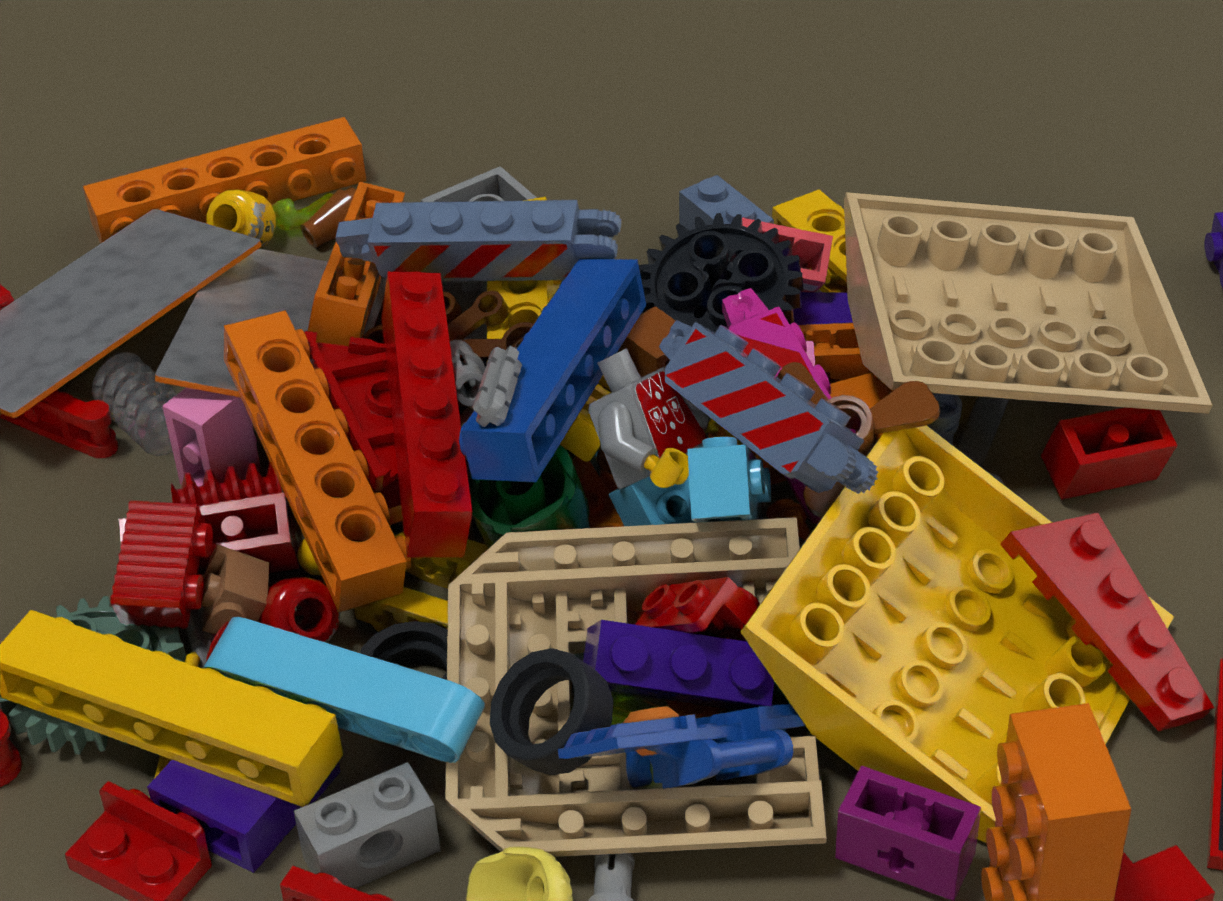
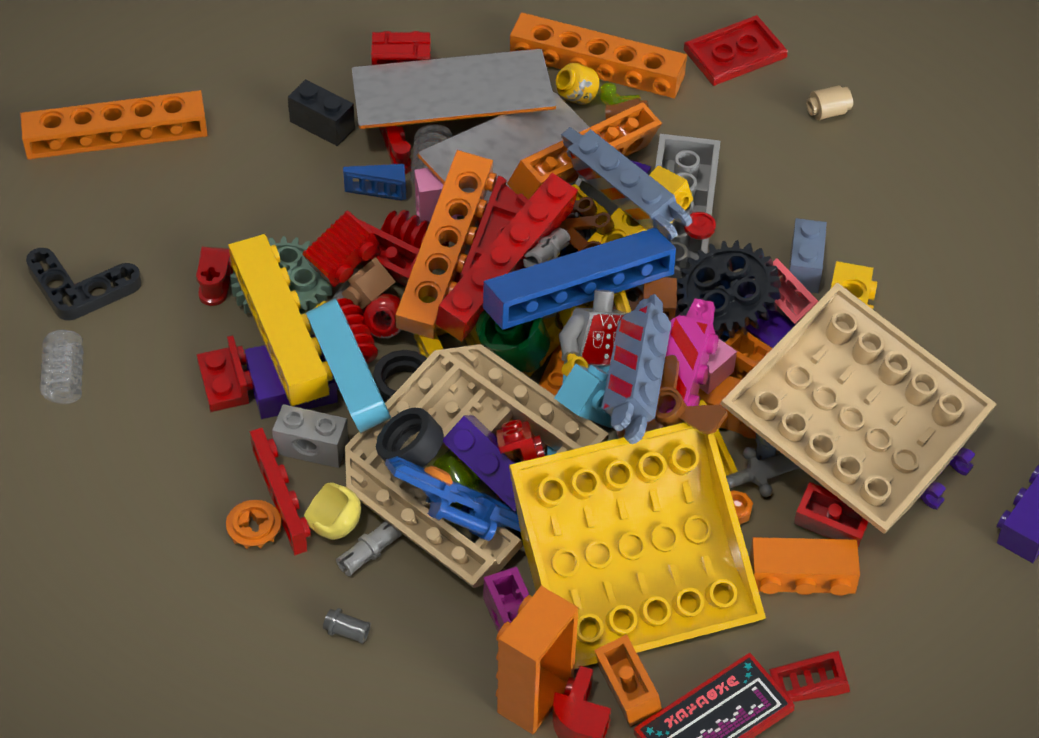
camera: 40 degrees right, 10 degrees up
(110, 467) = (383, 182): none -> blue slope
(383, 95) = (735, 50): none -> red tile
(497, 386) = (519, 270): light grey axle -> none
(555, 80) = (829, 102): none -> tan brick
(1112, 613) = (722, 579): red wing -> none
(1161, 514) = (805, 565): none -> orange brick
(1166, 798) = (628, 680): none -> orange brick

